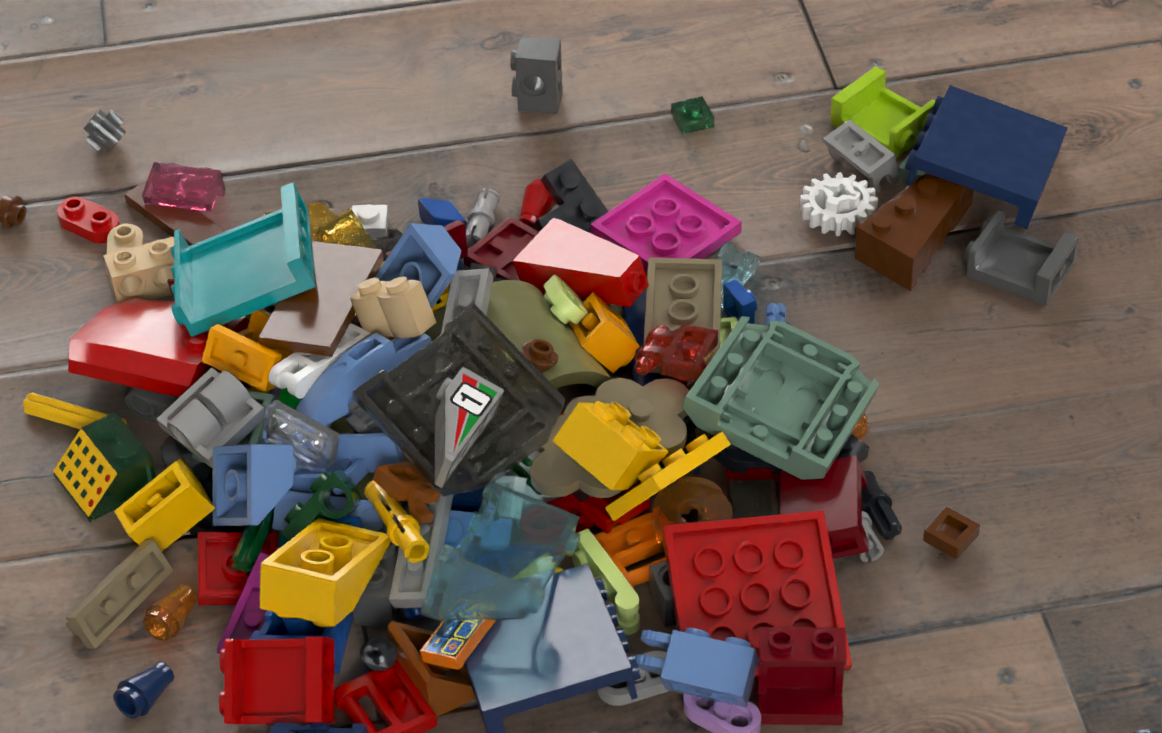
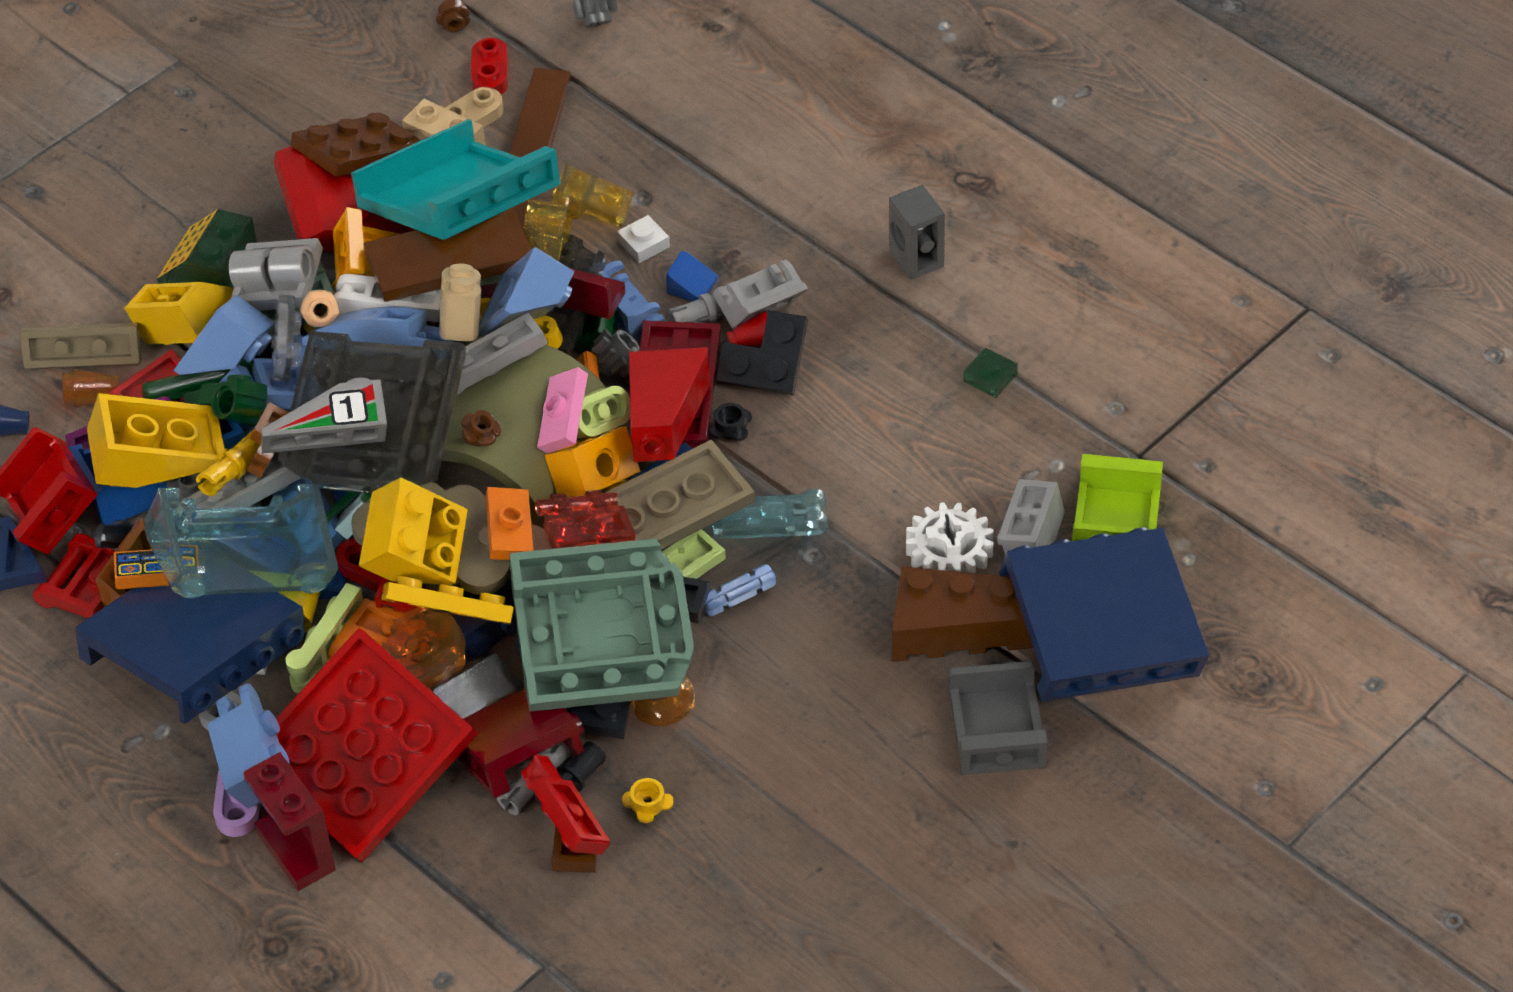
camera: 55 degrees right, 5 degrees up
(61, 411) = (257, 200): yellow axle -> none
(111, 312) = (352, 142): none -> reddish brown plate
(183, 186) = (567, 96): clear pink bracket -> none
(297, 393) = (319, 316): none -> light nougat plant
(508, 183) = (759, 293): none -> light grey hinge
(562, 305) = (562, 410): none -> bright pink plate
(645, 389) = (508, 522): none -> orange plate
(667, 223) = (806, 438): dark pink plate -> none
(738, 301) = (744, 544): blue plate -> none
(918, 509) = (565, 808): none -> red hinge
(934, 472) = (647, 790): none -> yellow plate

